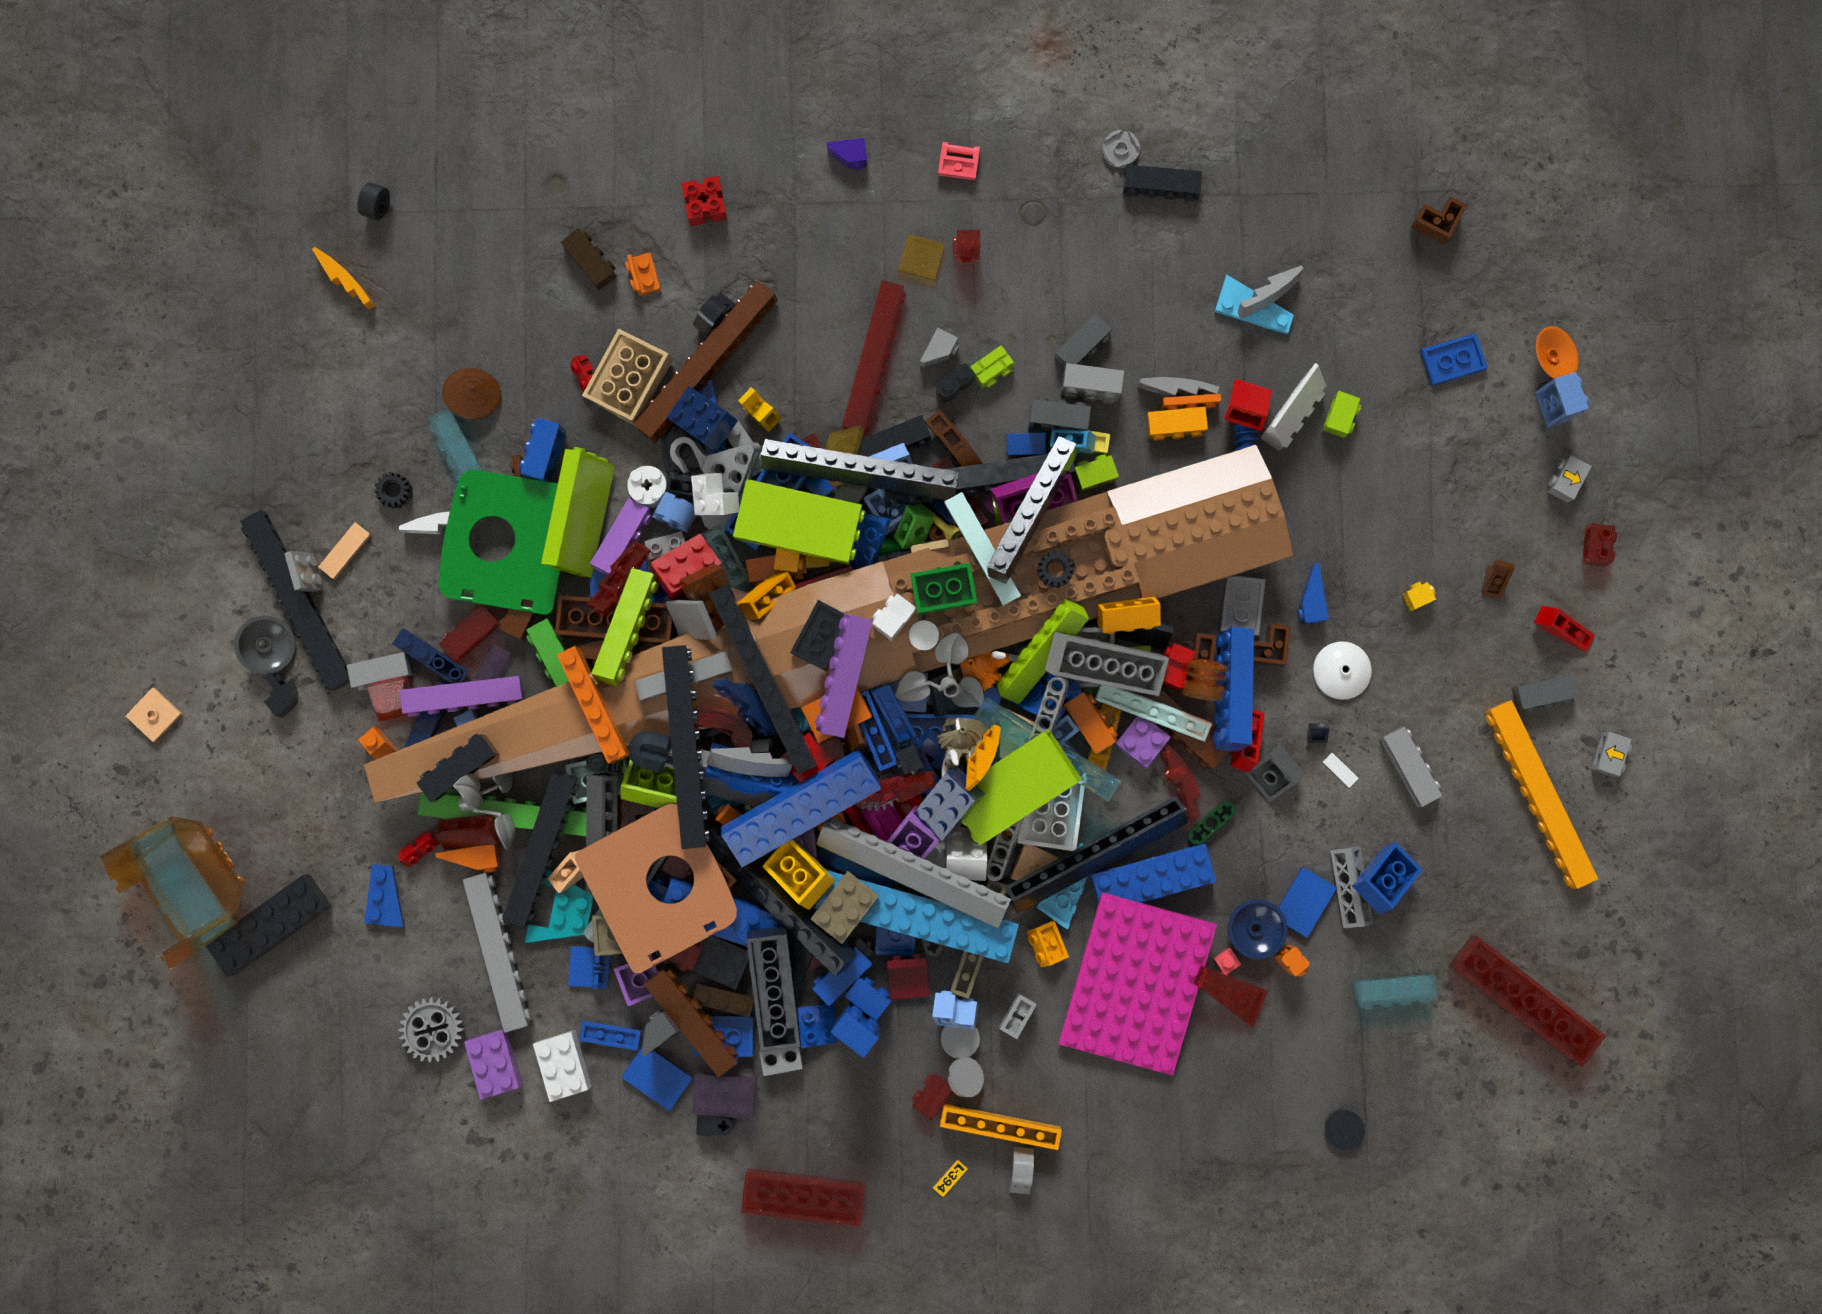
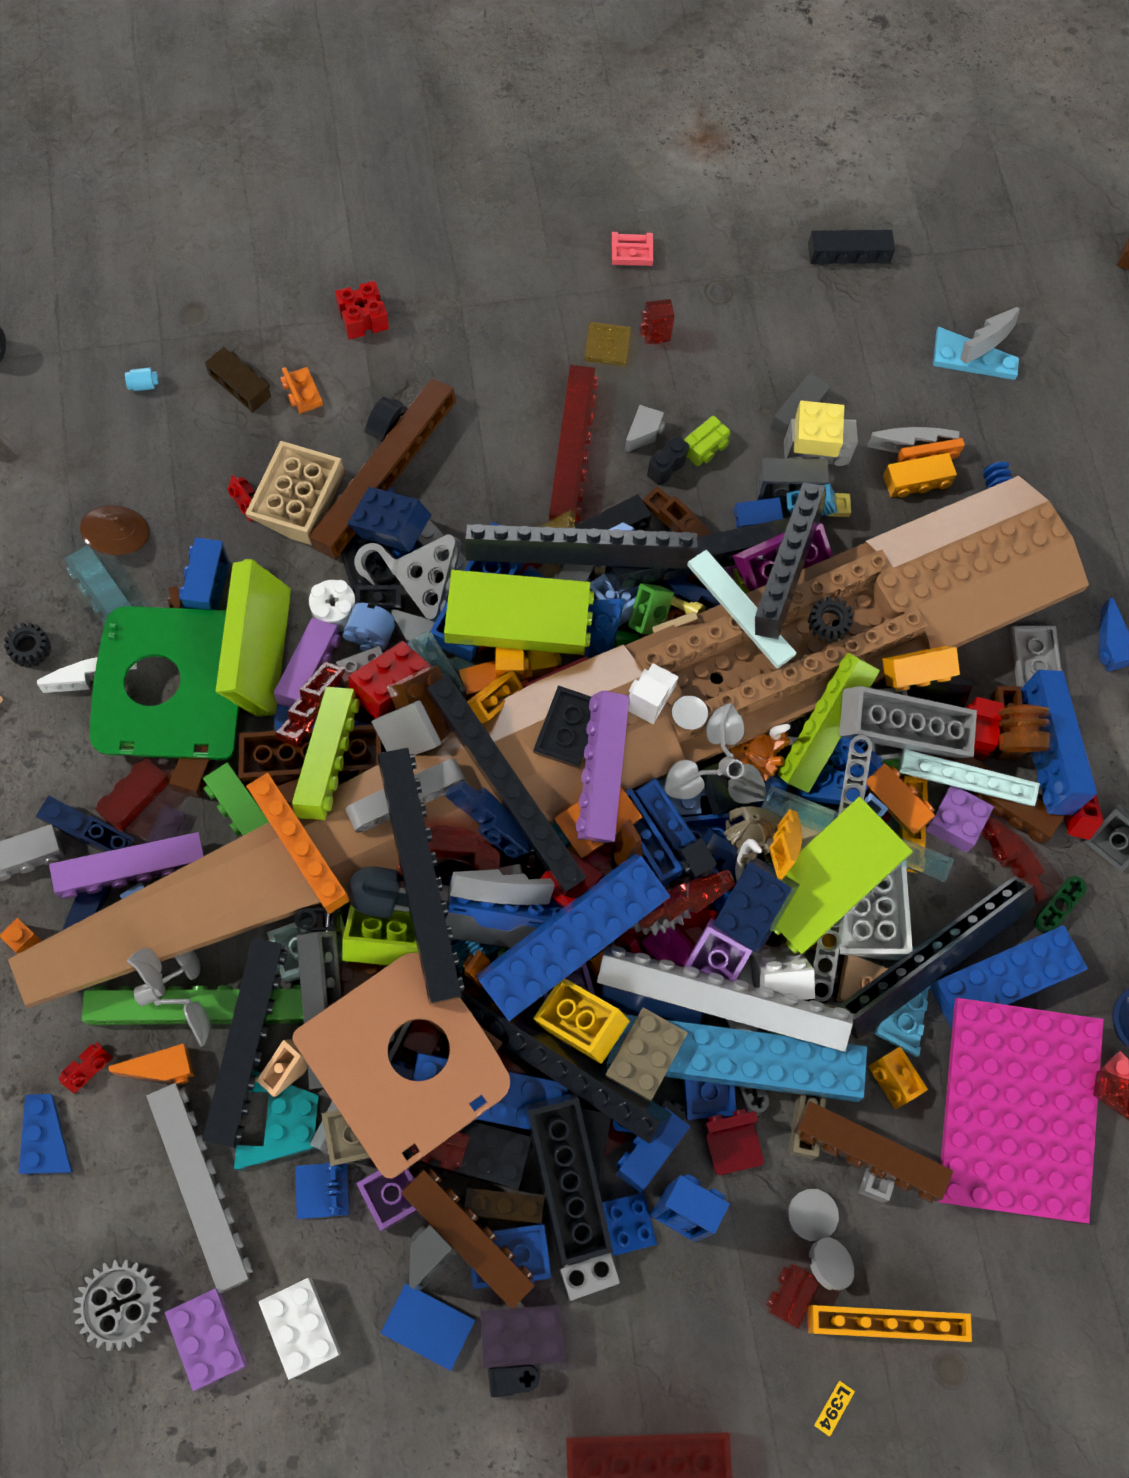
camera: 15 degrees left, 15 degrees down
(386, 697) = (34, 884): clear red tile -> none
(463, 762) = (140, 931): black brick -> none
(467, 831) = (148, 1032): clear red brick -> none
(504, 249) = (141, 379): none -> medium azure brick
(610, 1035) = (359, 1277): blue plate -> none
(709, 496) = (410, 600): white brick -> none
(759, 409) = (450, 511): yellow brick -> none
(849, 152) = (512, 250): dark purple slope -> none
(868, 996) = (683, 1162): blue brick -> none
(943, 589) = (706, 653): green brick -> none
(954, 1012) = (801, 1178): light blue brick -> none
(1009, 1002) = (873, 1152): none -> reddish brown brick
(1022, 1170) = (929, 1380): light grey brick -> none
(1086, 379) = (819, 428): none -> light yellow brick
(1096, 472) = (846, 532): lime brick -> none
(1120, 149) = (799, 222): light grey tile -> none
(1248, 404) = (995, 444): red brick -> none
(1275, 648) = (1088, 692): reddish brown brick -> none
(1295, 409) = (1048, 441): white slope -> none
(1341, 414) = (1096, 446): lime brick -> none

